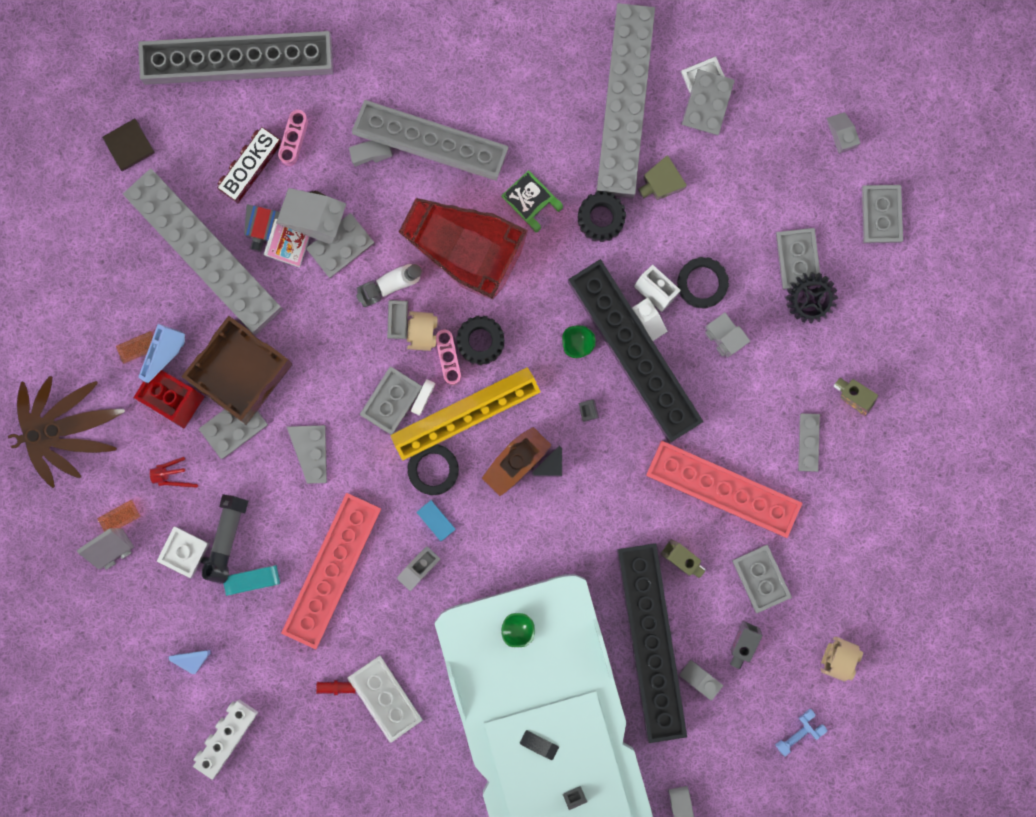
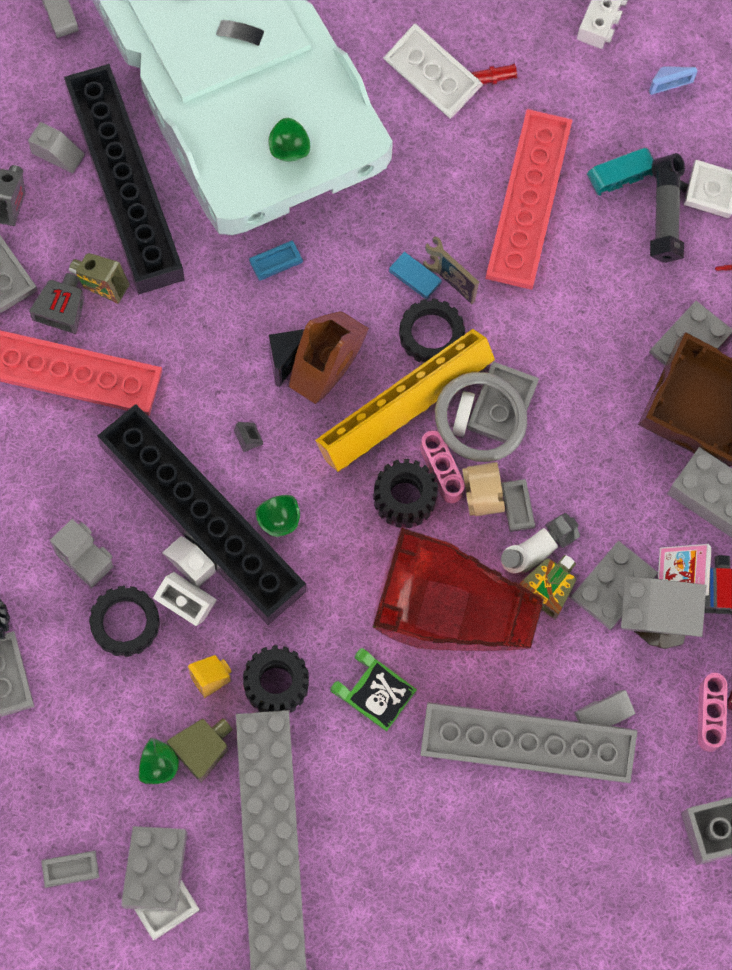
camera: 165 degrees right, 15 degrees down
(311, 451) = (588, 330): light grey wing -> none
(388, 252) = (552, 583): none -> torso
(416, 525) = (451, 271): none -> dark tan flag
(418, 568) = (424, 216): light grey slope -> none
(428, 413) = (460, 448): none -> light grey wedge
(542, 553) = (275, 260): none -> dark azure tile
(648, 228) = (209, 674): none -> yellow slope
(695, 174) = (157, 763): none -> green helmet
(716, 542) = (59, 304): none -> dark grey torso
(765, 115) = (70, 869): none -> light grey tile

